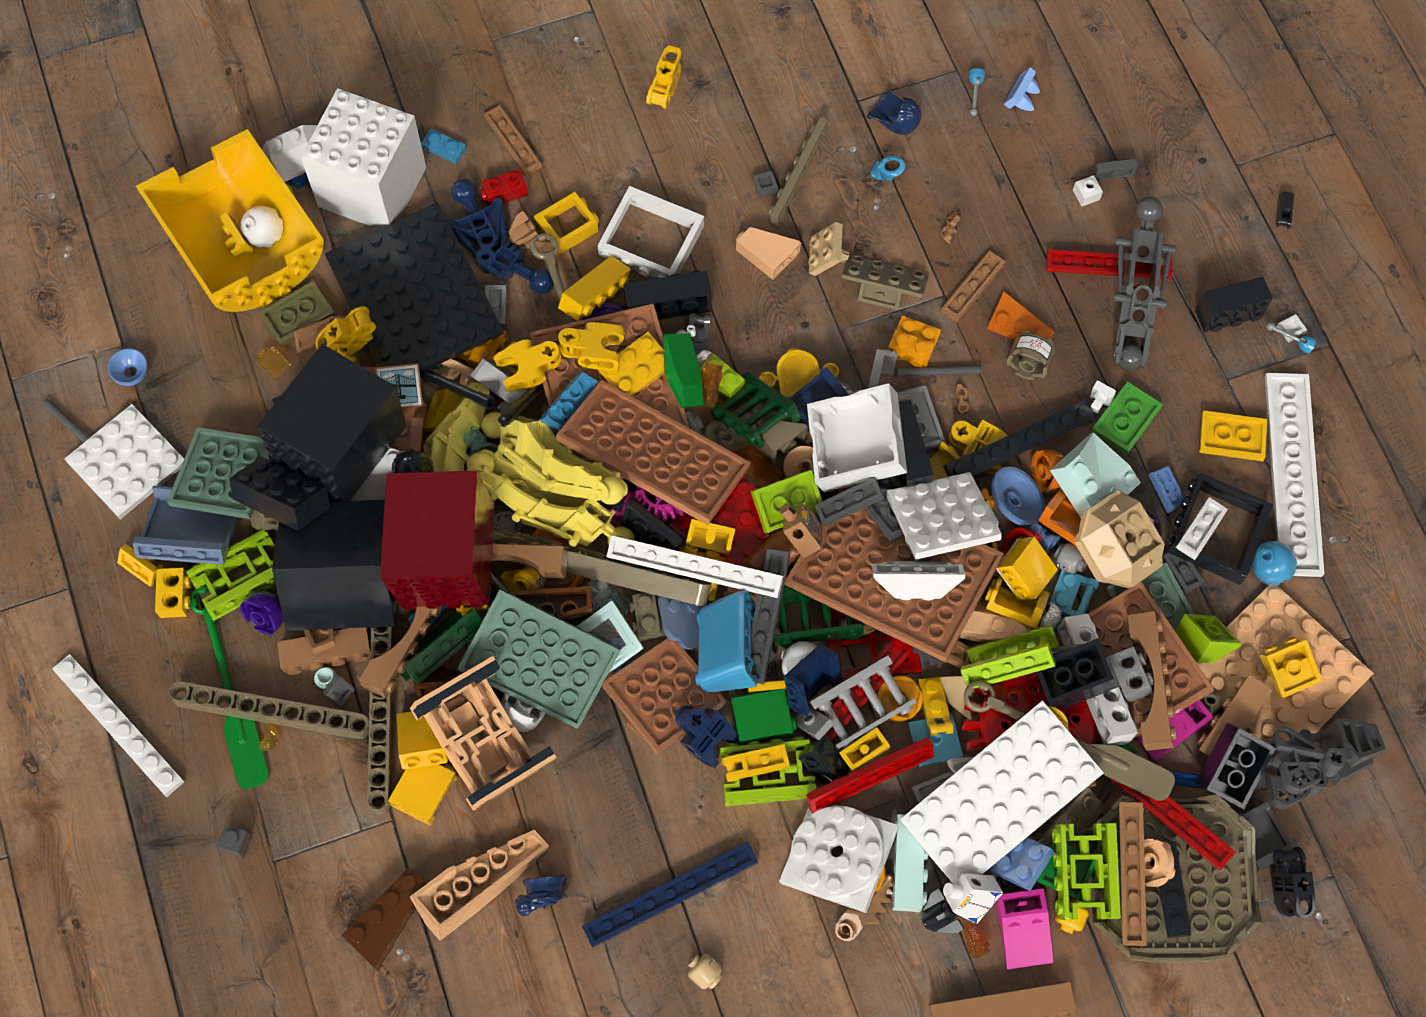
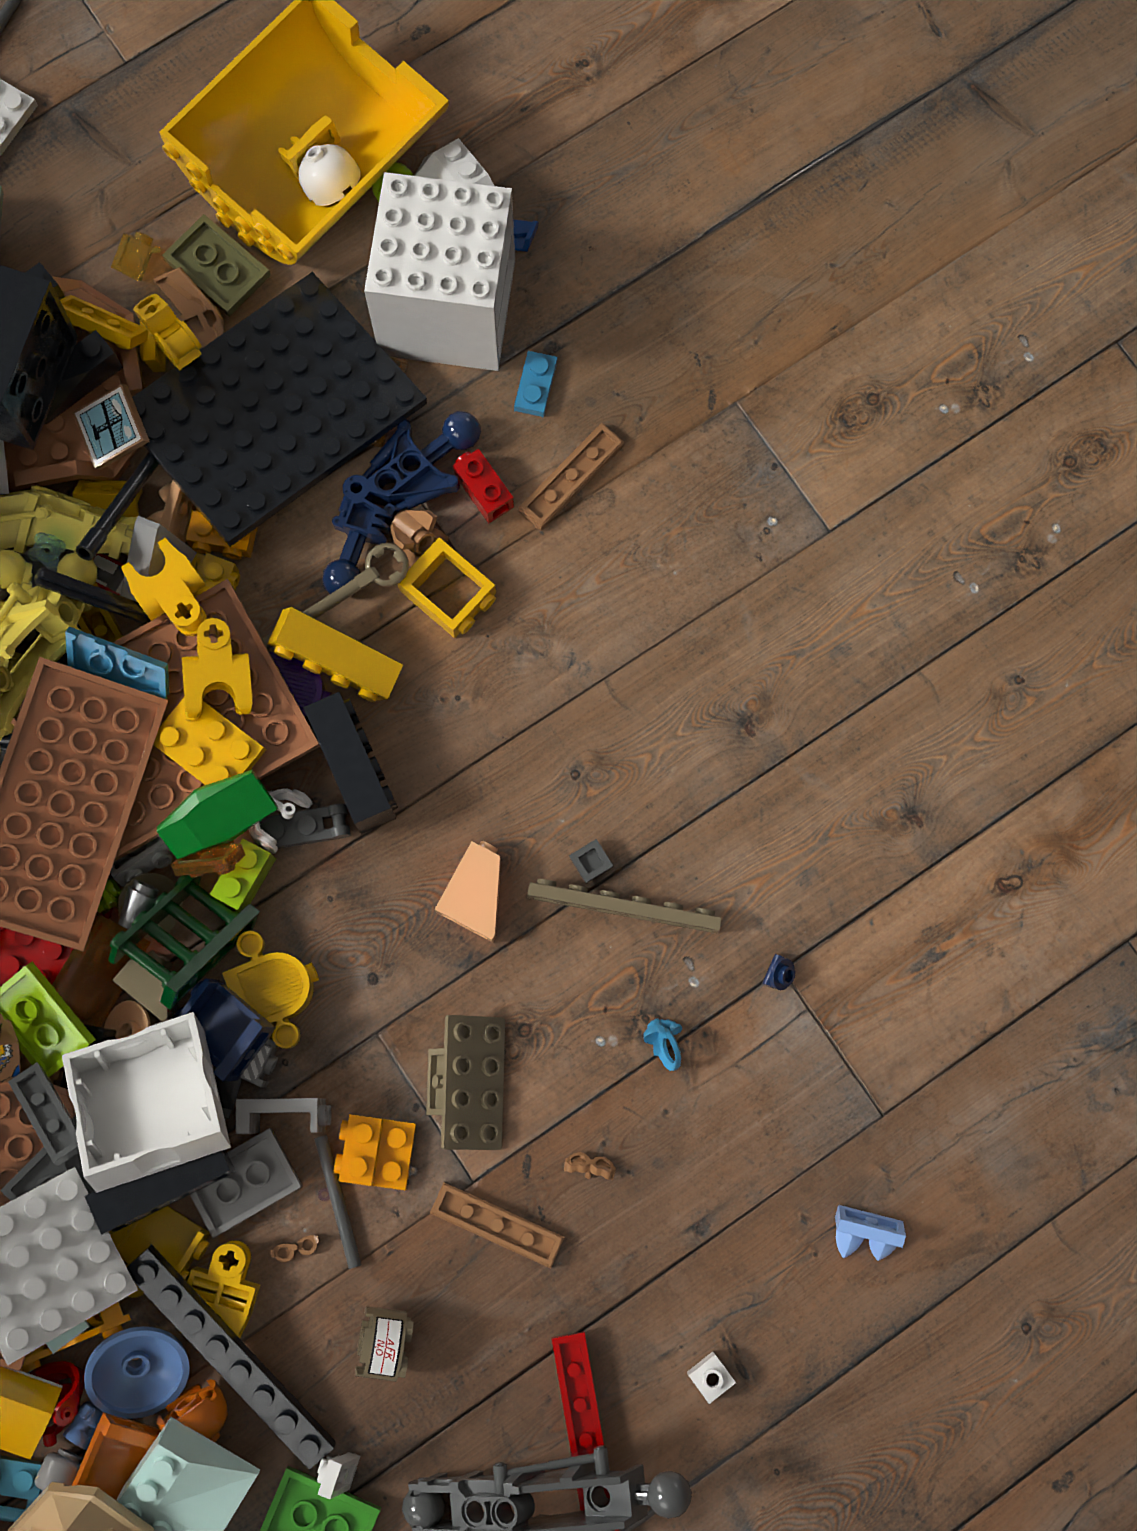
camera: 75 degrees right, 10 degrees up
(122, 361) = (81, 65): medium blue piece -> none
(497, 298) = (292, 526): light grey plate -> none
(661, 208) = (406, 691): white window -> none
(666, 79) = (708, 663): yellow piece -> none
(725, 435) = (138, 898): none -> flat silver cone
(826, 249) = (491, 982): tan plate -> none
(859, 100) = (780, 973): none -> dark blue plate
(896, 114) = (764, 1035): dark blue piece -> none
(976, 77) = (870, 1151): hinge -> none
(1012, 319) = (446, 1313): orange wing -> none
(1115, 169) = (769, 1429): dark grey plate -> none

